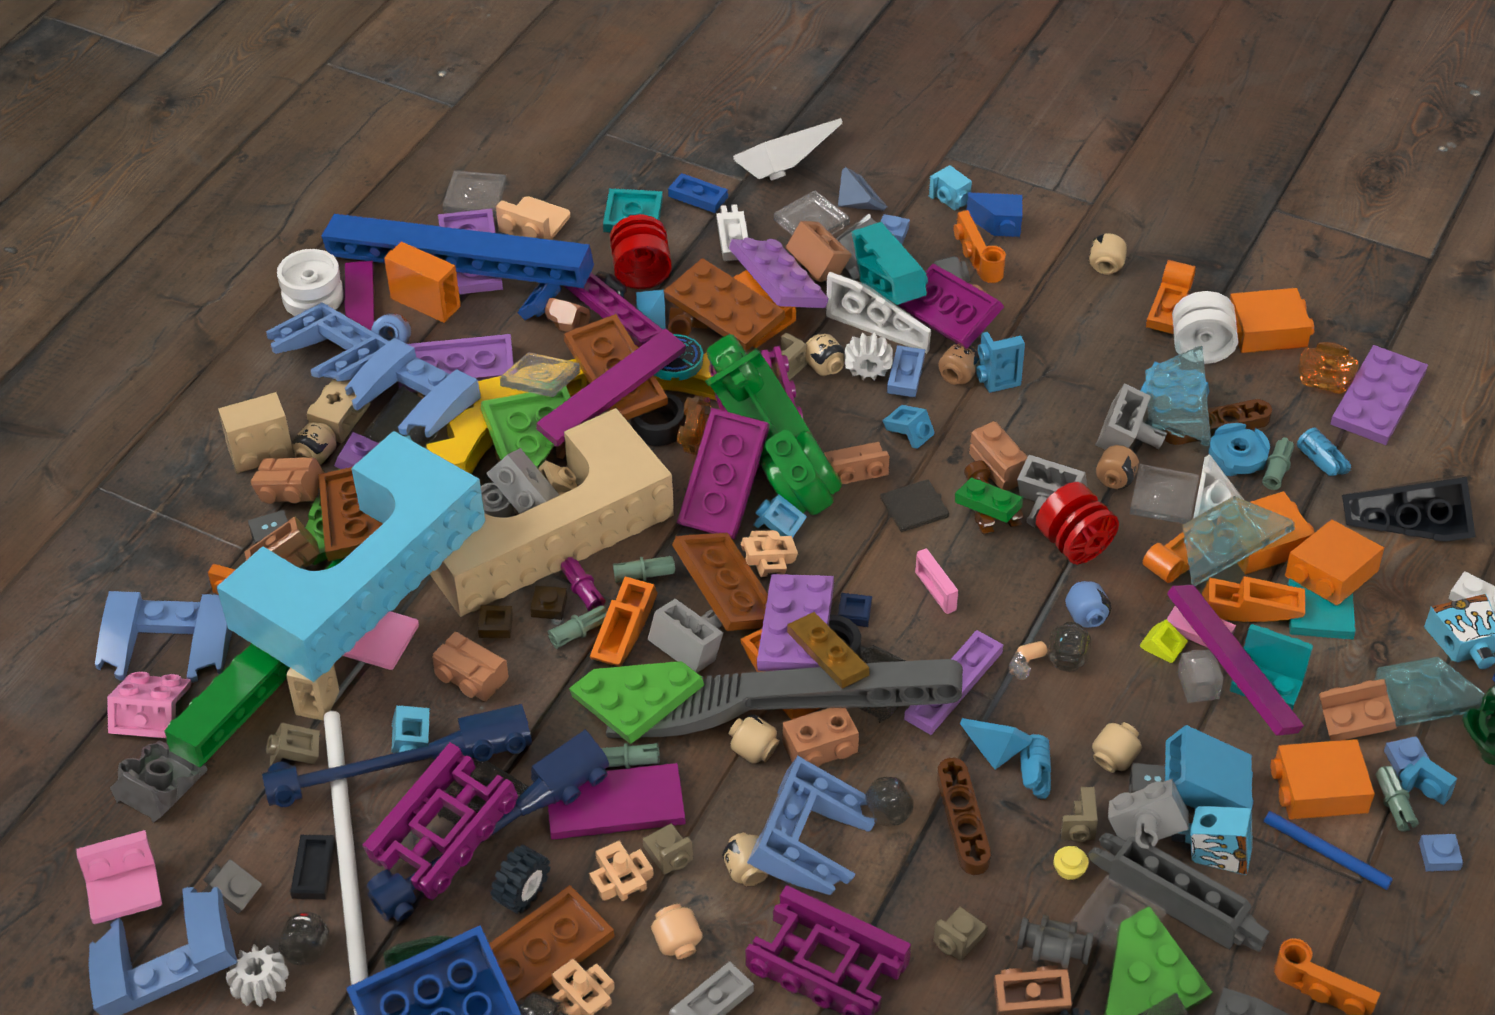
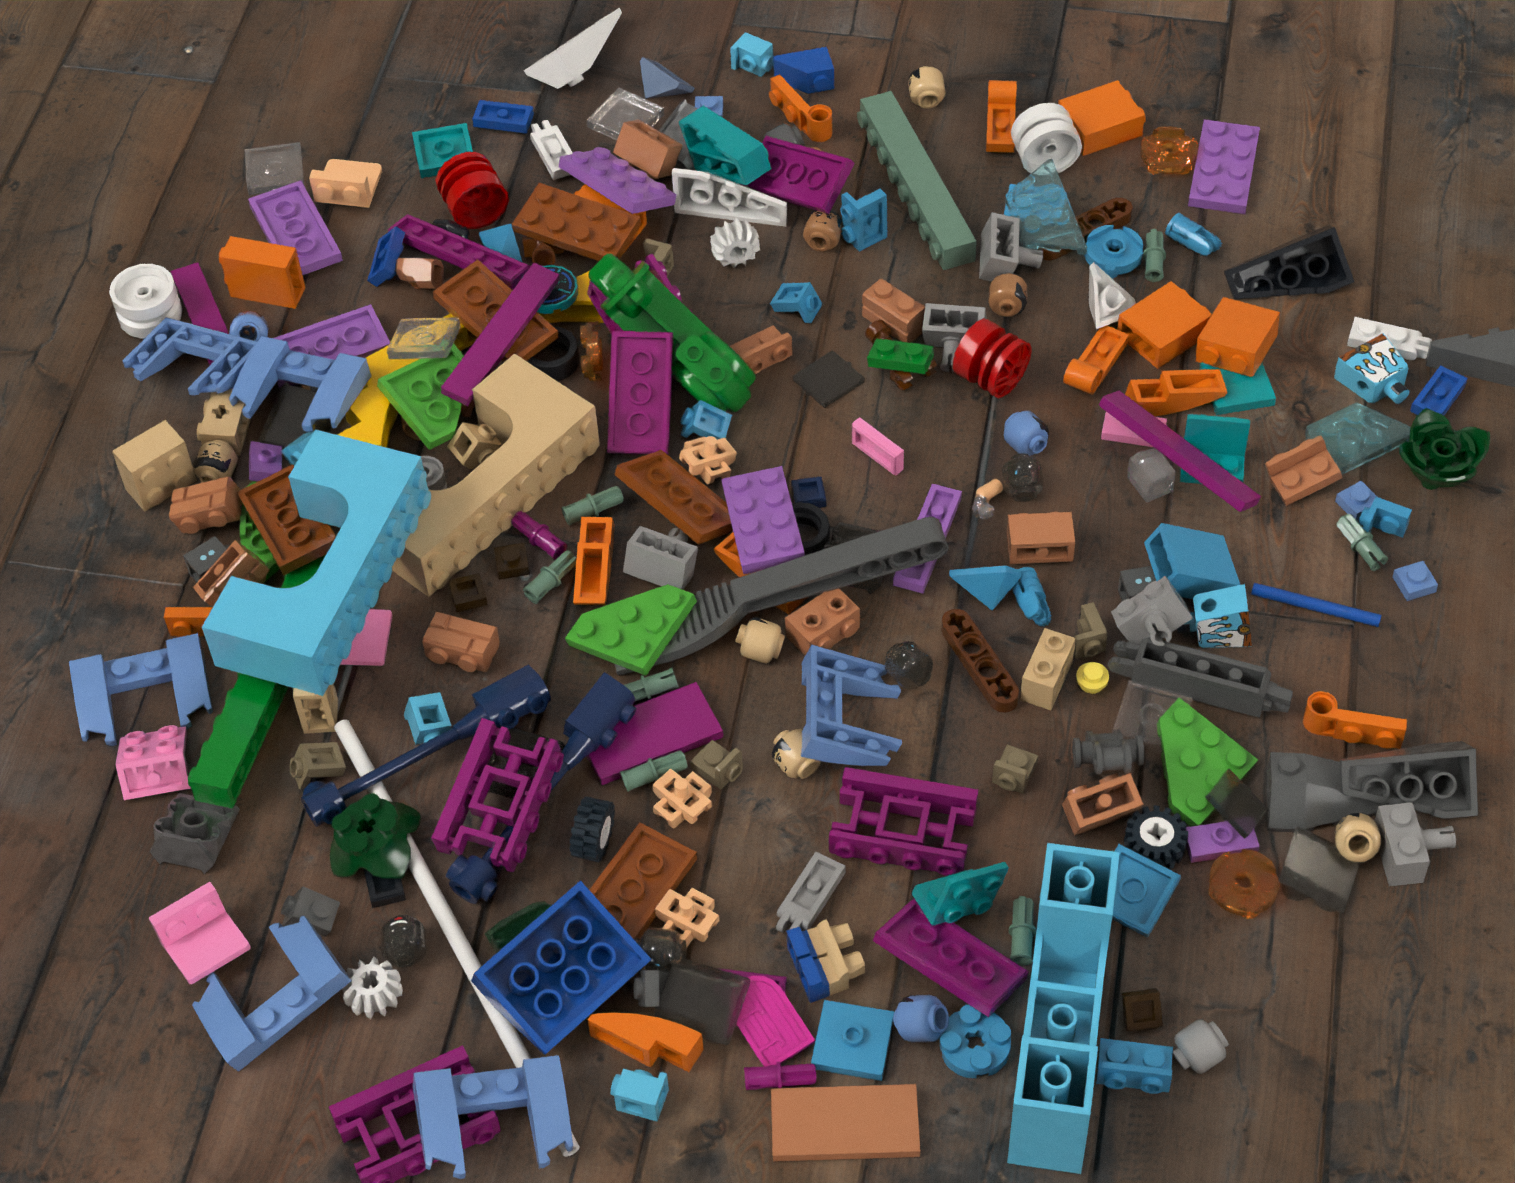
camera: 15 degrees left, 5 degrees up
(314, 829) = (373, 837): none -> dark green brick
(467, 249) = (302, 227): blue brick -> none
(521, 481) = (449, 450): light grey brick -> none
(602, 837) = (653, 770): none -> sand green axle
(676, 931) = (756, 837): light nougat head -> none
(825, 354) = (690, 251): tan head -> none
(828, 650) = (808, 537): pearl gold plate -> none
(906, 371) = (774, 249): medium blue plate -> none
(1026, 842) = (1047, 669): none -> tan brick
(1065, 710) = (1040, 537): none -> nougat brick
(1066, 339) = (917, 181): none -> sand green brick
(1116, 747) = (1098, 560): tan head -> none
(1164, 494) = (1059, 310): clear tile -> none
(1164, 641) = (1106, 450): neon yellow slope -> none
(1229, 535) = (1136, 336): clear light blue wing -> none
(1322, 779) = (1292, 541): orange brick -> none

